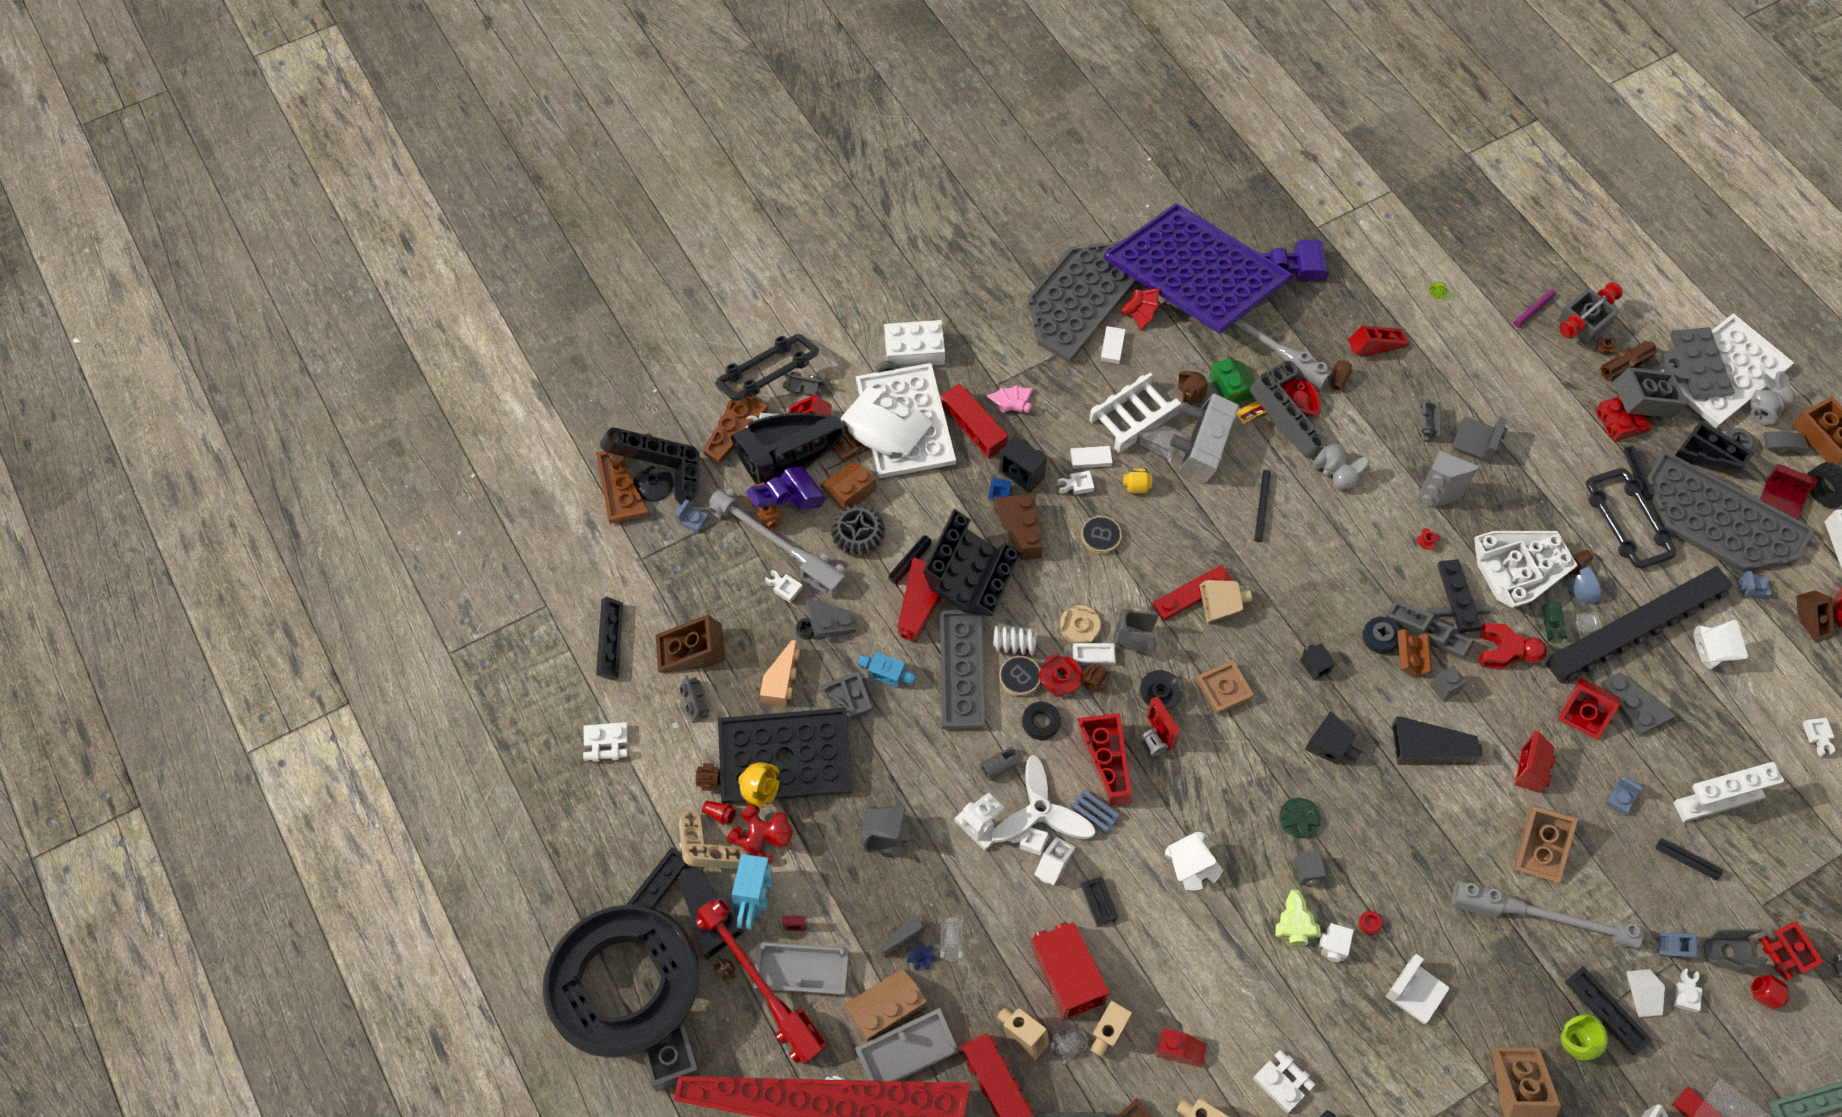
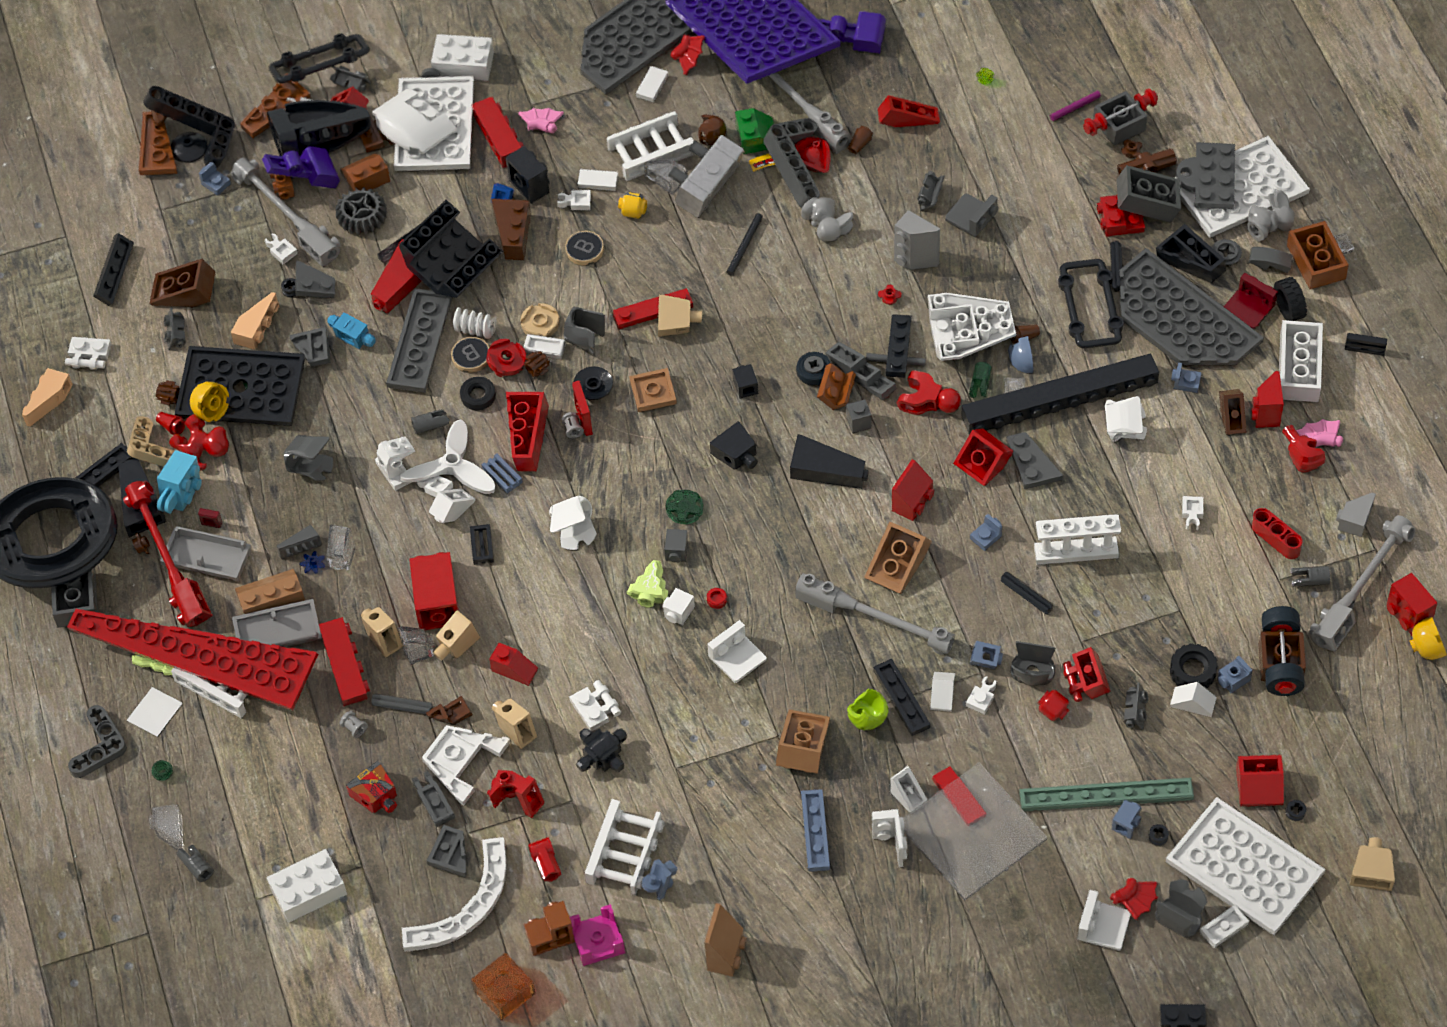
camera: 15 degrees right, 5 degrees down
(576, 798) = (49, 393): none -> light nougat slope

